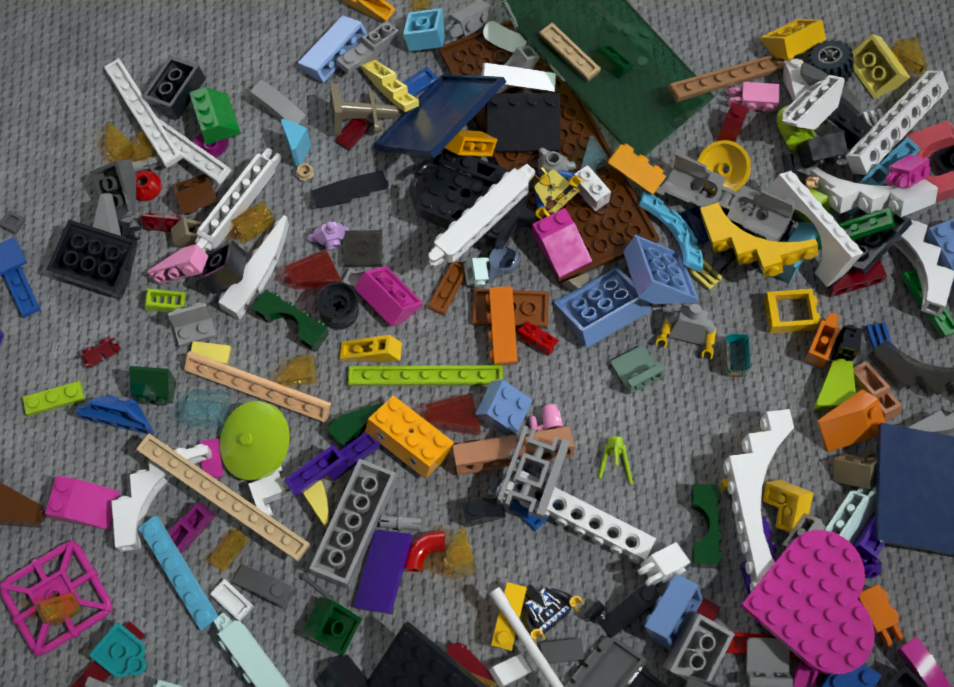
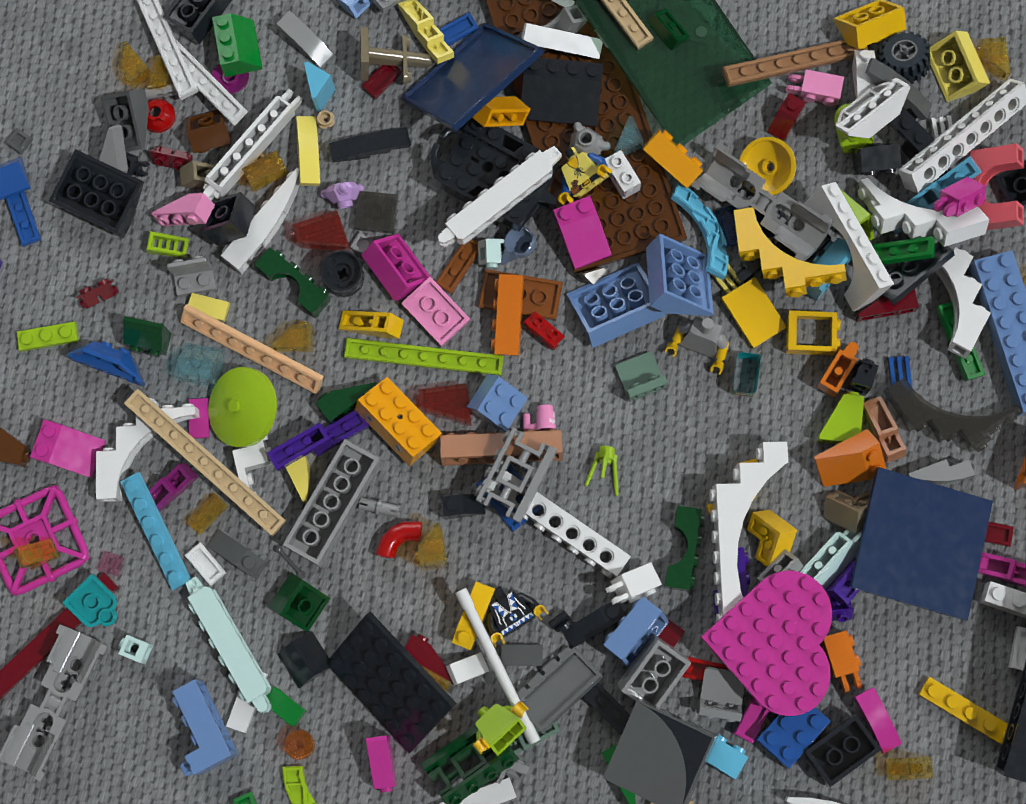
camera: 15 degrees right, 10 degrees up
(135, 611) = (111, 563): none -> clear pink tile
(292, 200) = (308, 151): none -> light yellow slope
(383, 571) = (356, 554): dark purple tile -> none
(432, 331) = (436, 311): none -> bright pink plate
(733, 299) = (753, 312): none -> yellow tile
(805, 179) = (849, 187): black arm -> none

